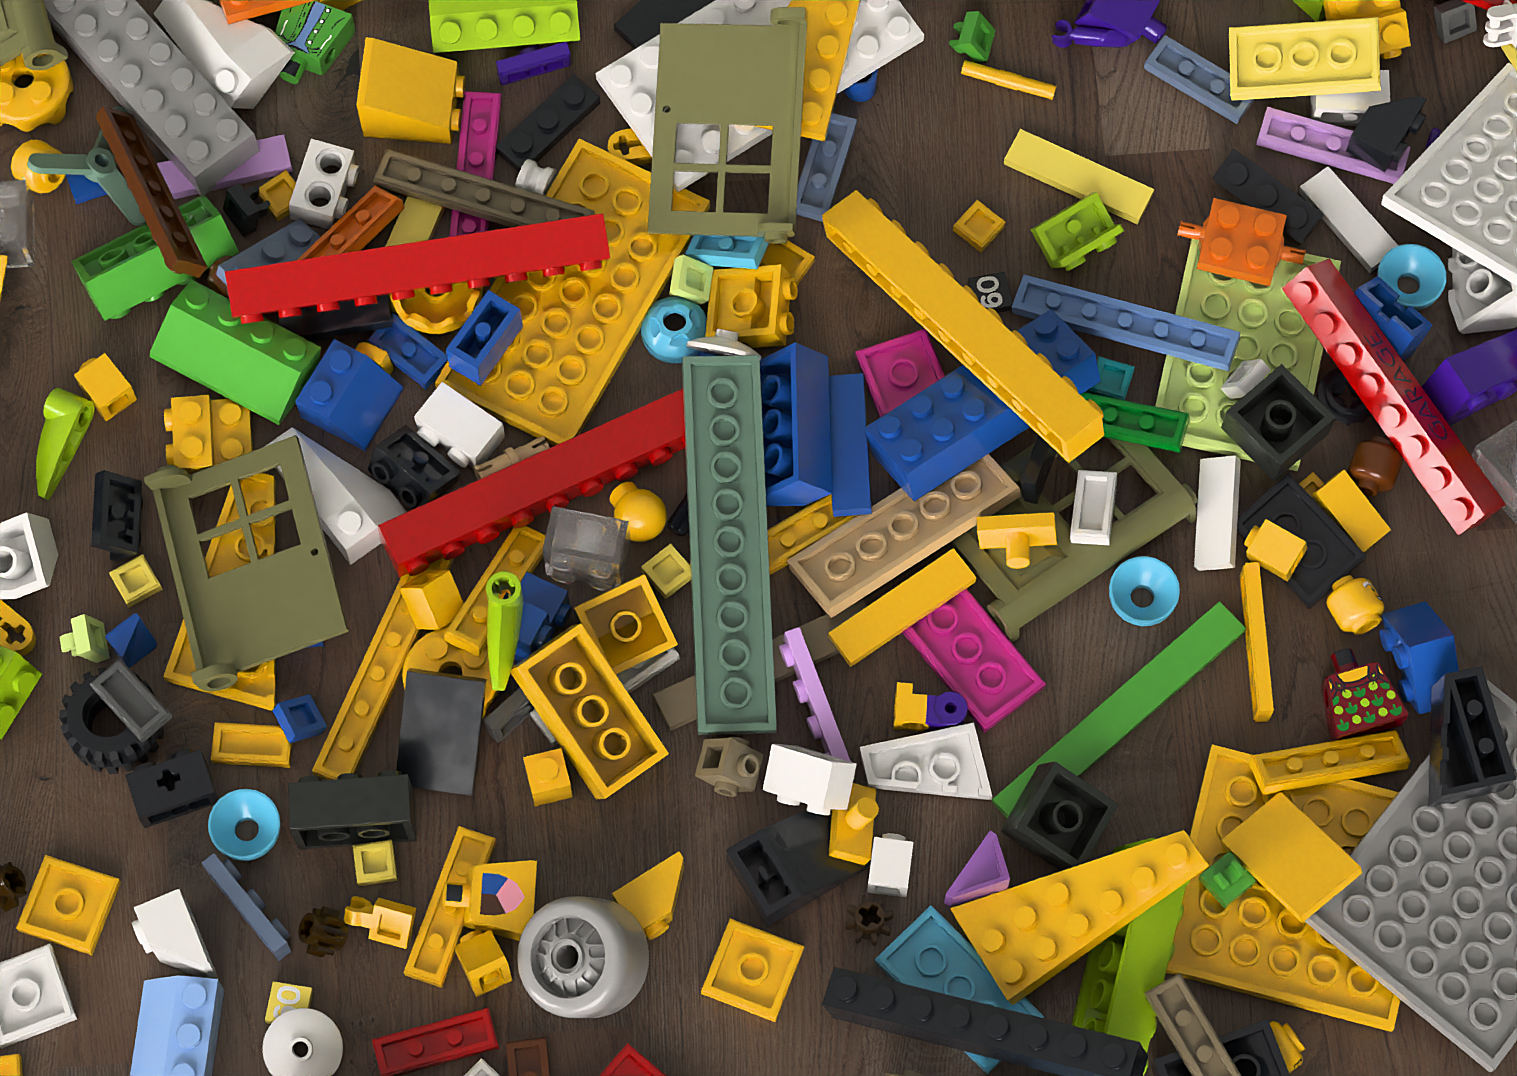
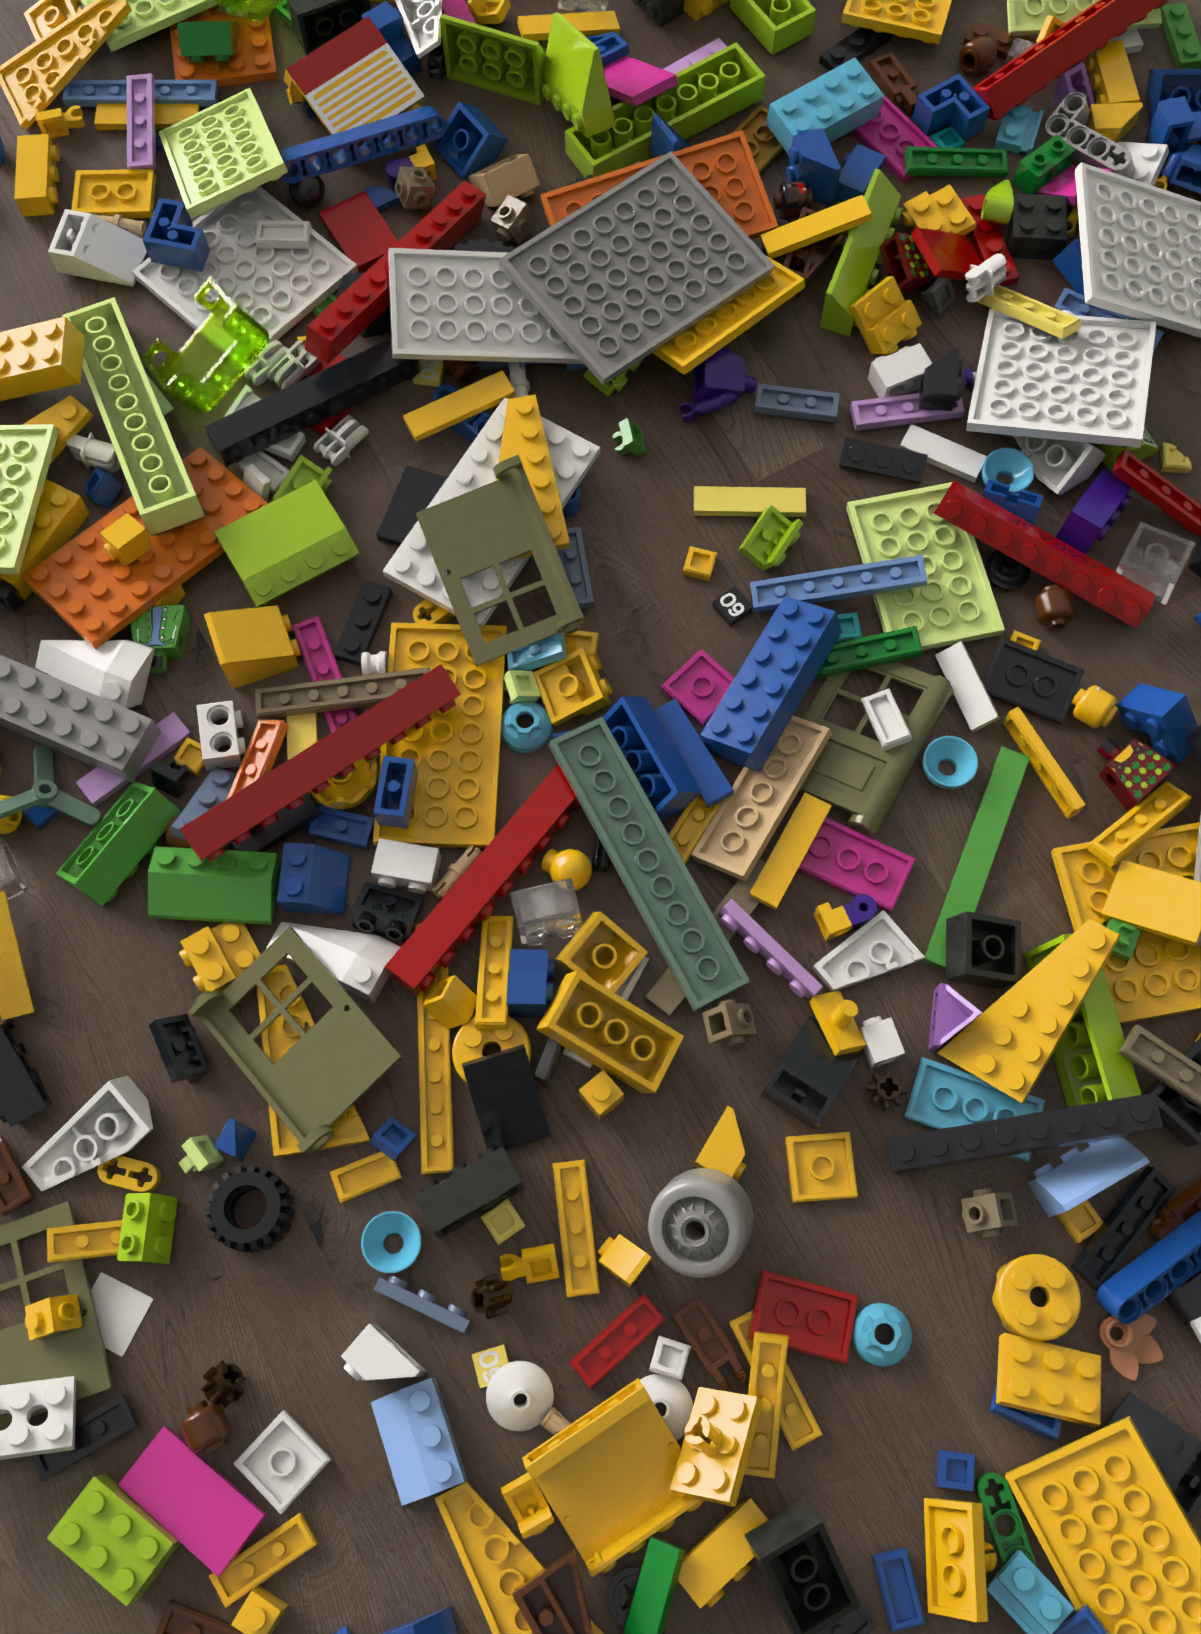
camera: 25 degrees left, 0 degrees up
(61, 435) = (108, 1004): lime piece -> none
(68, 905) = (282, 1370): yellow tile -> none
(105, 386) = (124, 955): yellow brick -> none
(131, 700) = (259, 1189): dark grey tile -> none
(135, 581) = (217, 1091): light yellow tile -> none
(151, 192) = (94, 796): reddish brown plate -> none
(192, 789) = (316, 1257): black brick -> none
(377, 355) = (319, 839): yellow tile -> none
(496, 897) = (610, 1206): yellow torso -> none
(503, 626) = (519, 1000): lime piece -> none
(533, 62) = (331, 584): dark purple plate -> none
(667, 571) = (610, 901): light yellow plate -> none
(723, 344) = (569, 720): white dish -> none
(809, 778) = (793, 1005): white brick -> none
(964, 325) = (737, 632): yellow brick -> none
(1008, 79) = (667, 457): yellow piece -> none
(1017, 534) = (846, 762): yellow tile -> none
(1037, 470) = (832, 704): black tile -> none
(1241, 242) = (885, 496): orange plate -> none
(1245, 378) = (941, 585): white plate -> none
(1275, 549) = (1024, 691): yellow brick -> none
(1277, 422) = (981, 604): pearl dark grey brick -> none
(1304, 59) = (863, 357): light yellow plate -> none
(1351, 510) = (1054, 643): yellow tile -> none

